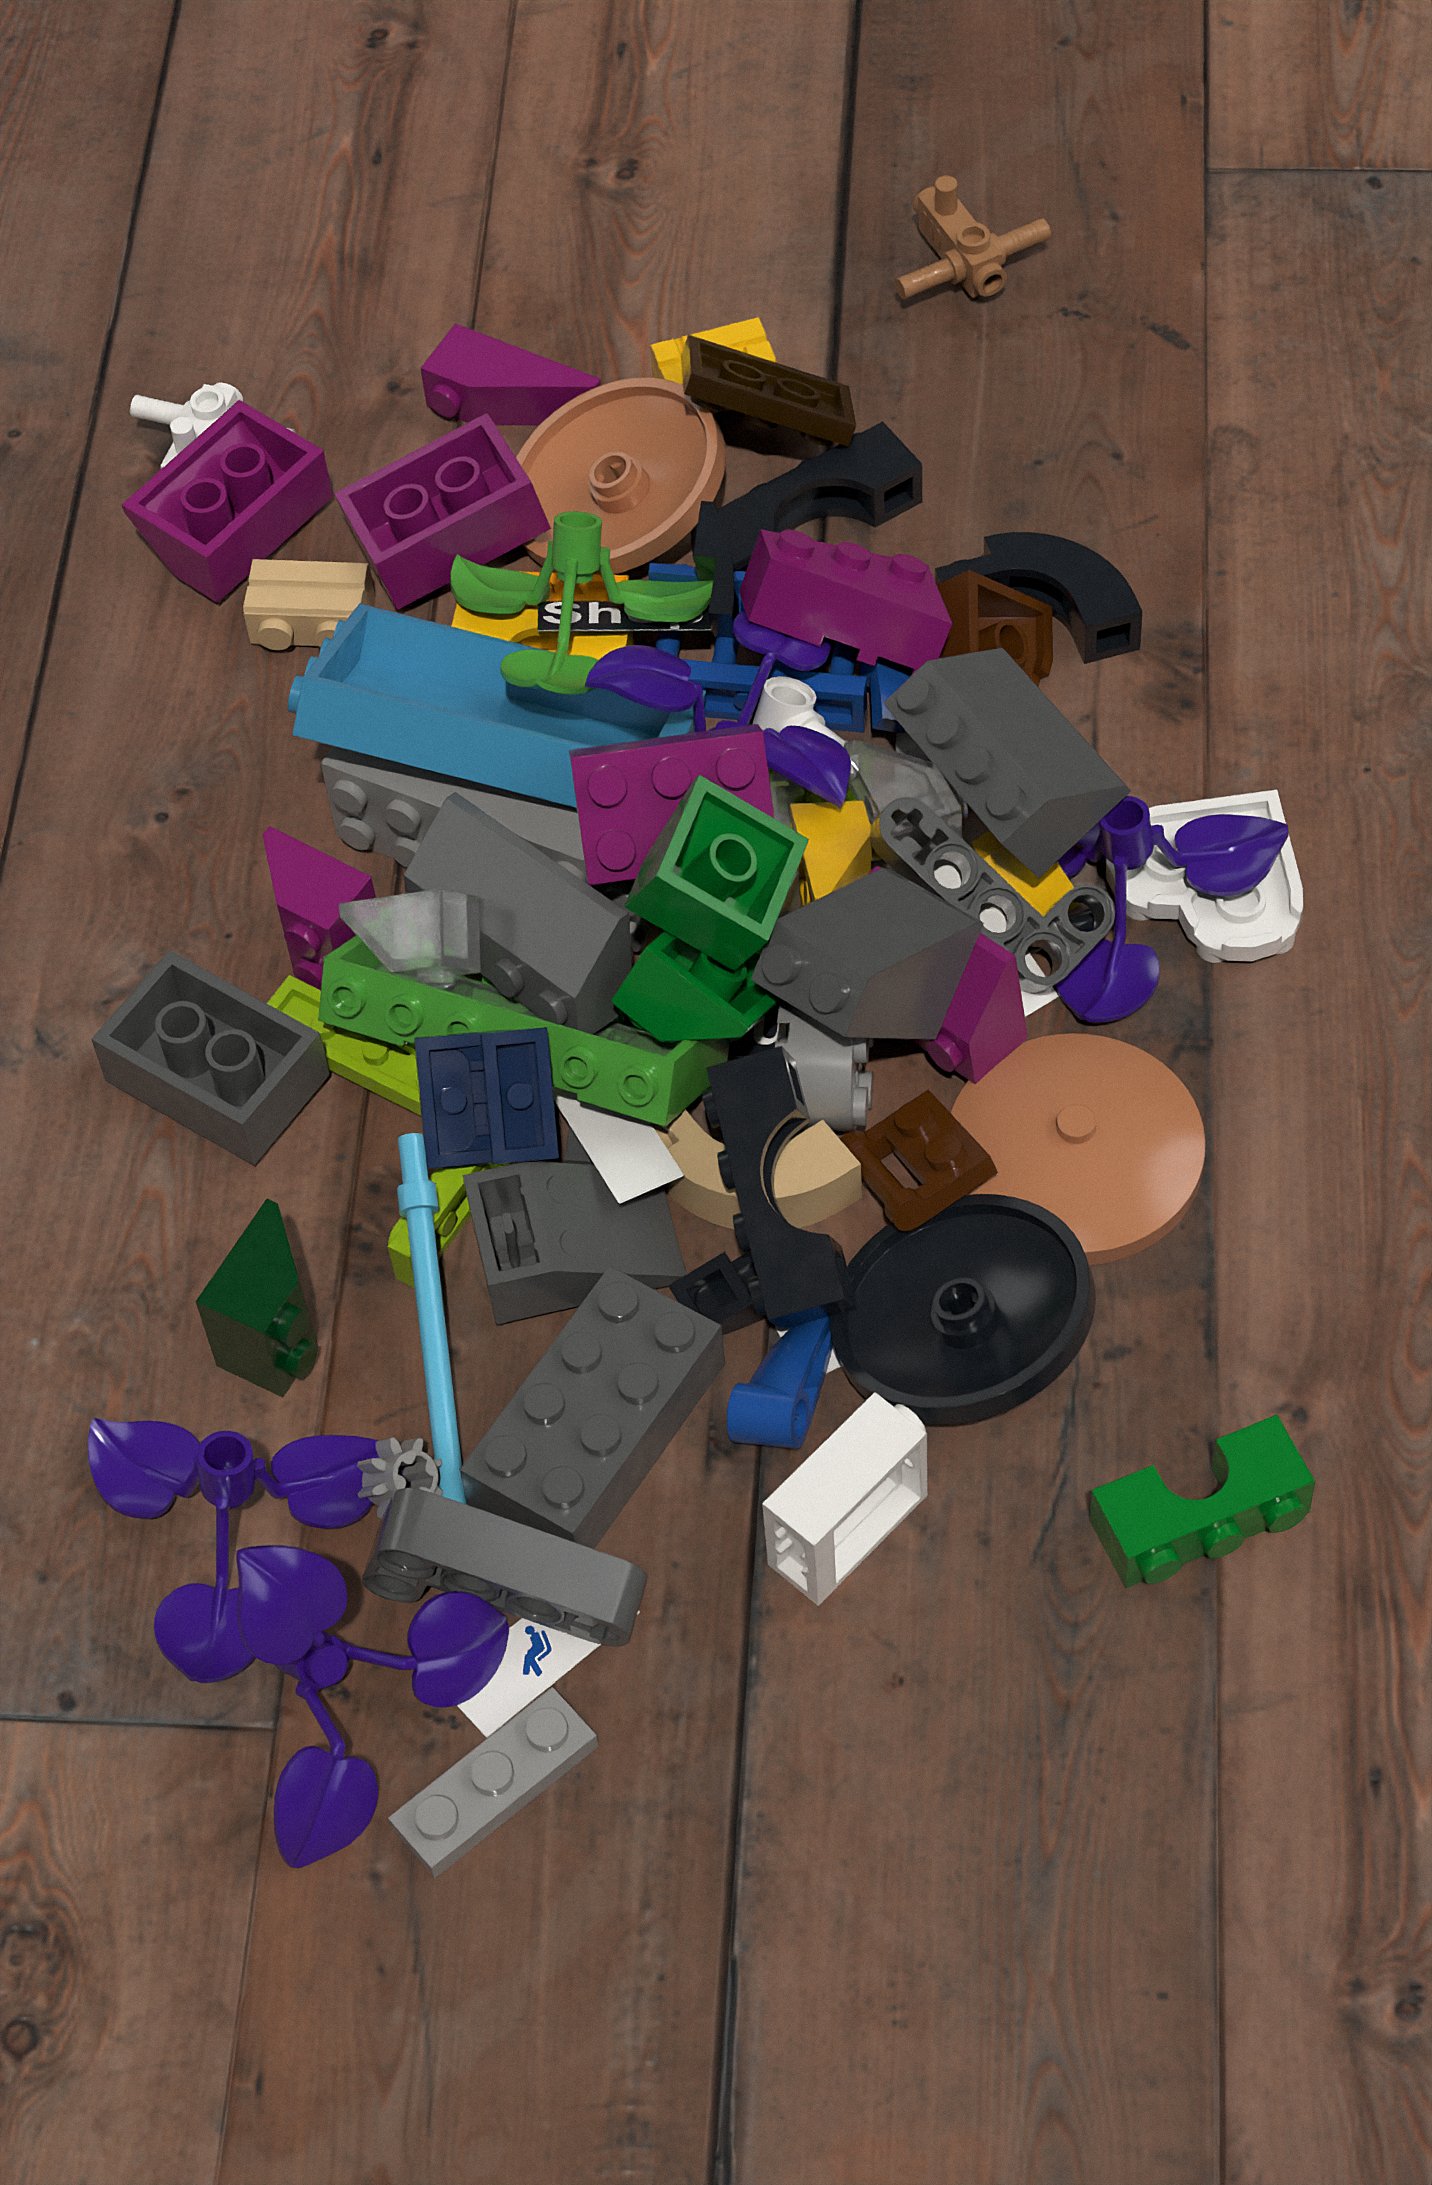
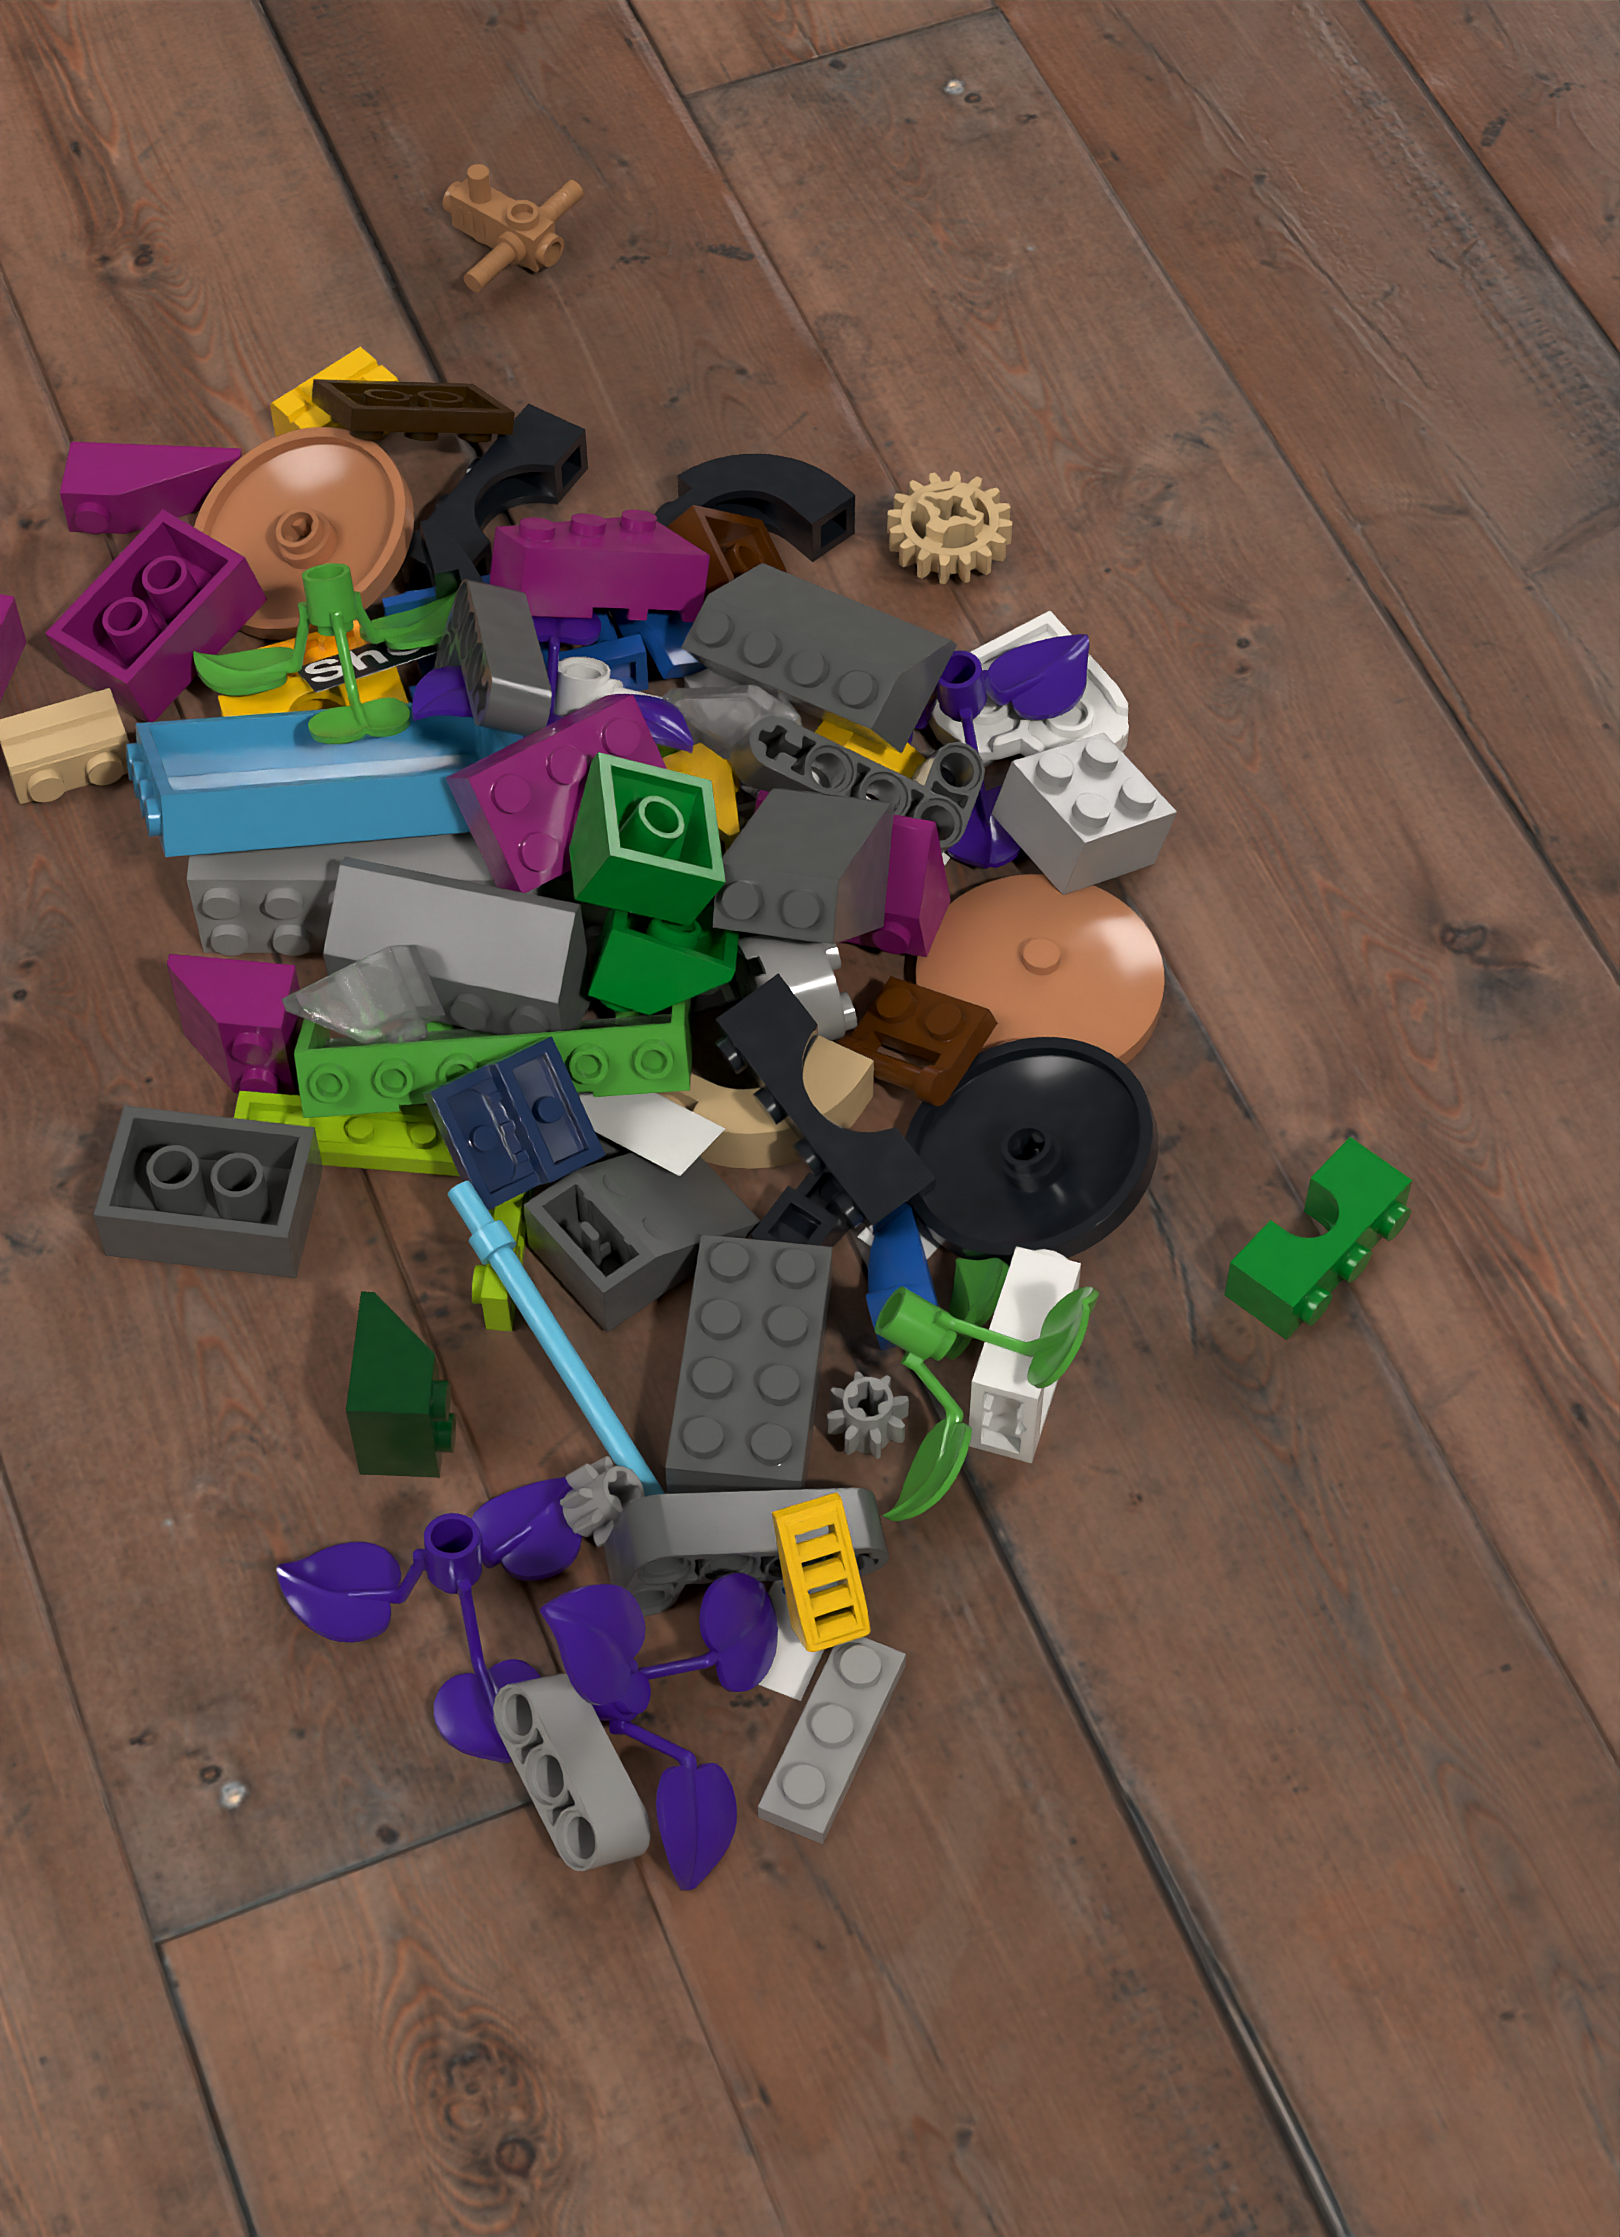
camera: 30 degrees left, 0 degrees up
(234, 1721) = (571, 1773): none -> light grey beam
(538, 1668) = (829, 1614): none -> yellow slope
(664, 1493) = (869, 1397): none -> light grey gear
(688, 655) = (499, 658): none -> dark grey beam
(750, 1439) = (934, 1333): none -> bright green plant
(1194, 999) = (1083, 813): none -> light grey brick
(1225, 674) = (954, 527): none -> tan gear

